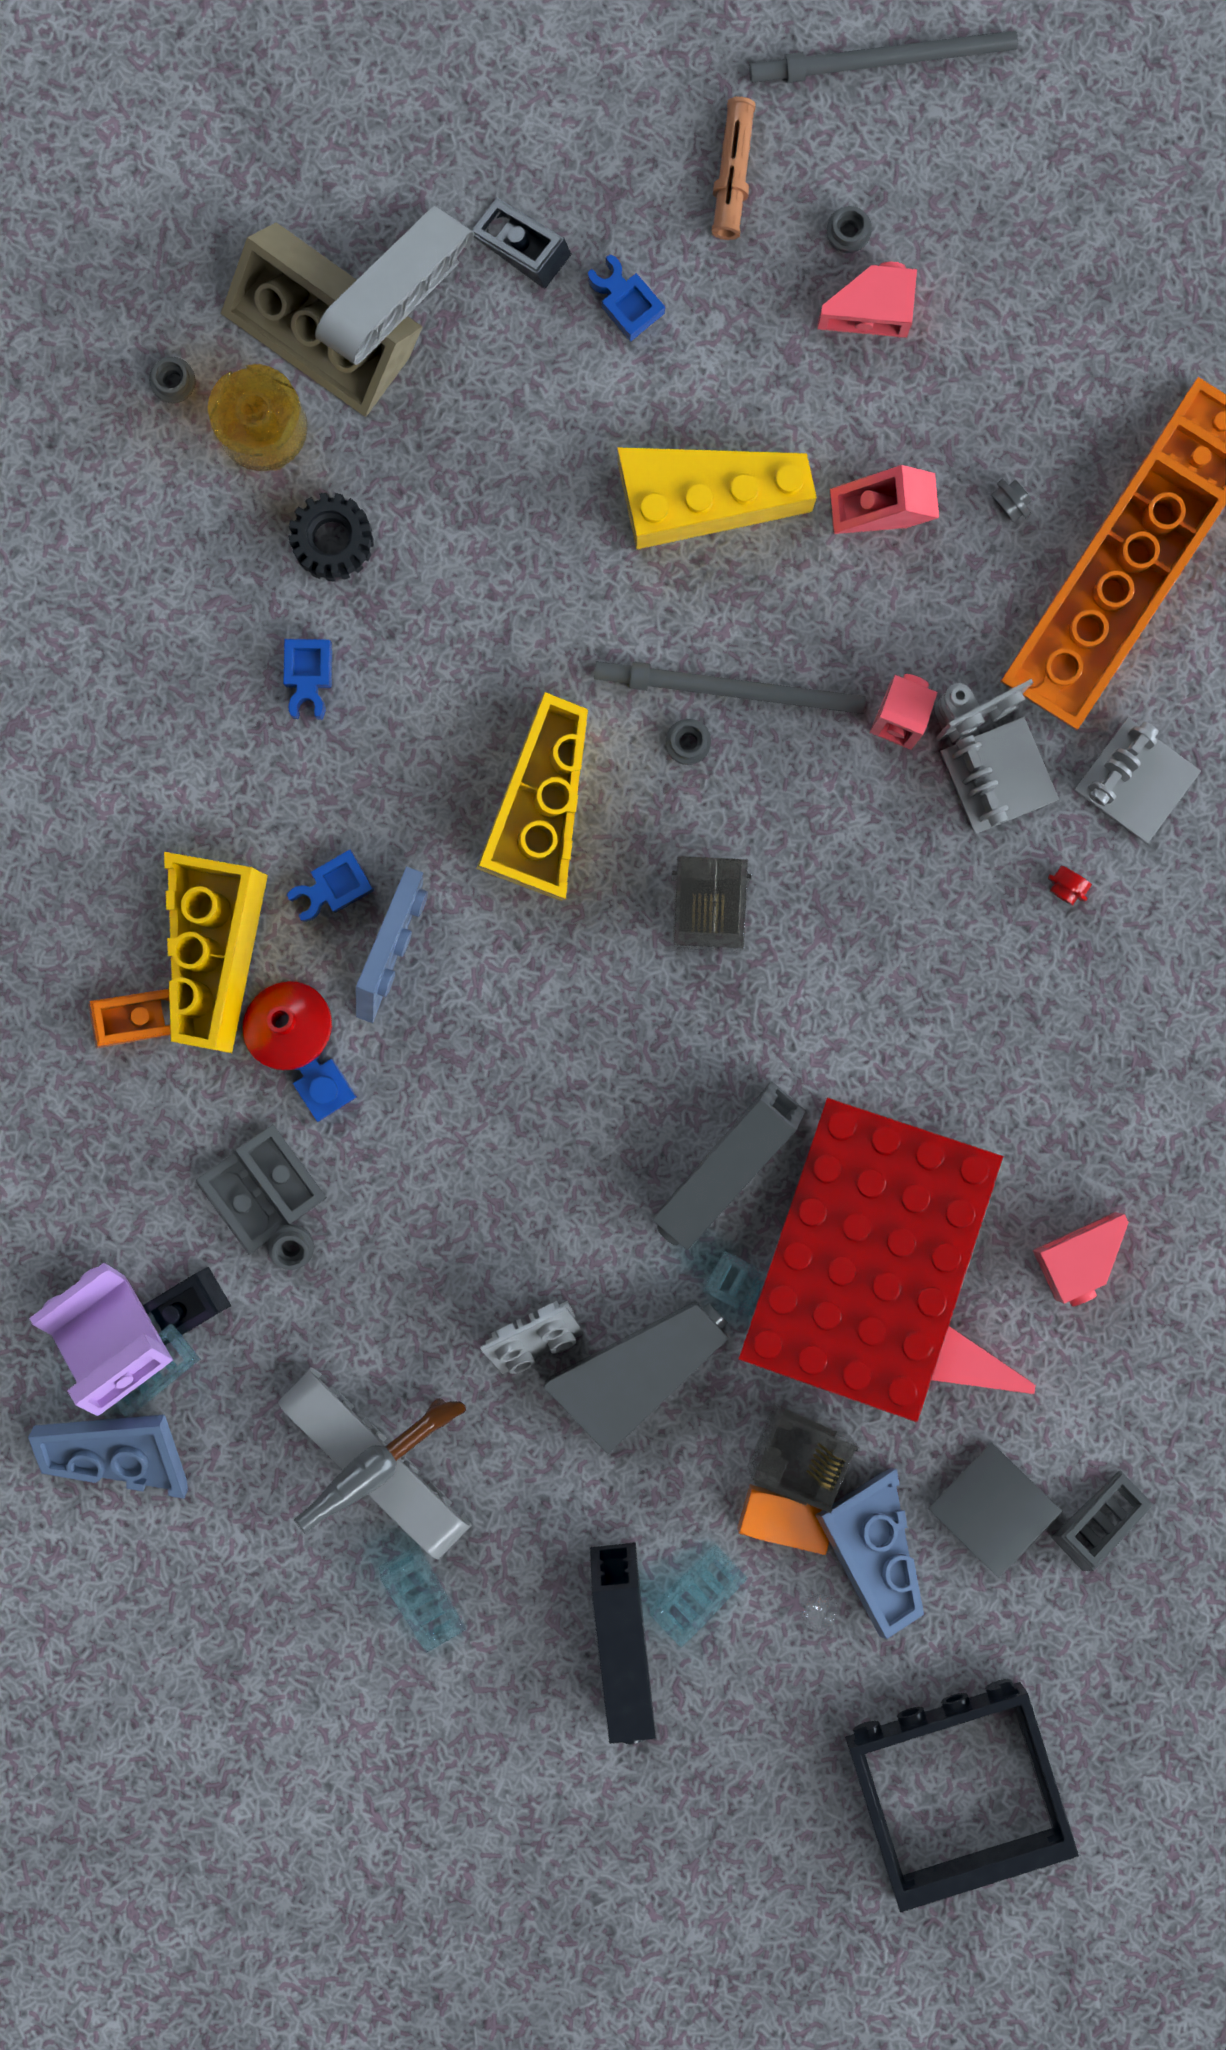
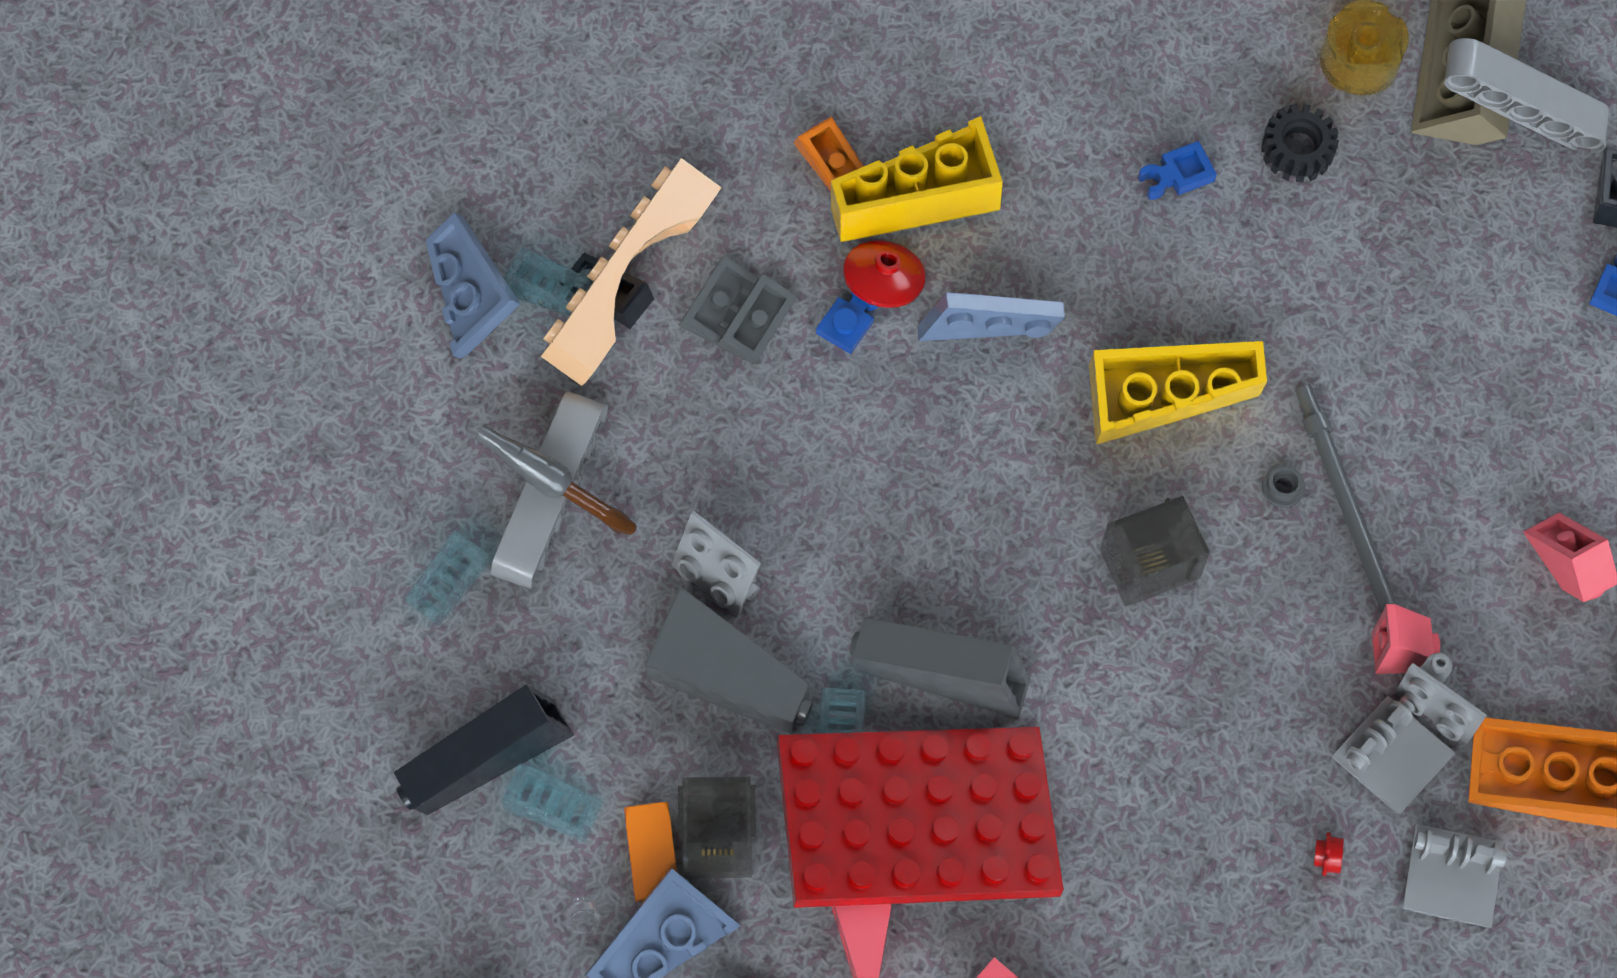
camera: 60 degrees right, 20 degrees down
(103, 1338) = (562, 234): lavender panel -> none
(230, 1364) = (589, 331): none -> light nougat arch
(285, 1258) = (693, 343): dark grey plate -> none
(338, 883) = (1019, 263): blue plate -> none
(710, 491) = (1500, 411): yellow wedge -> none

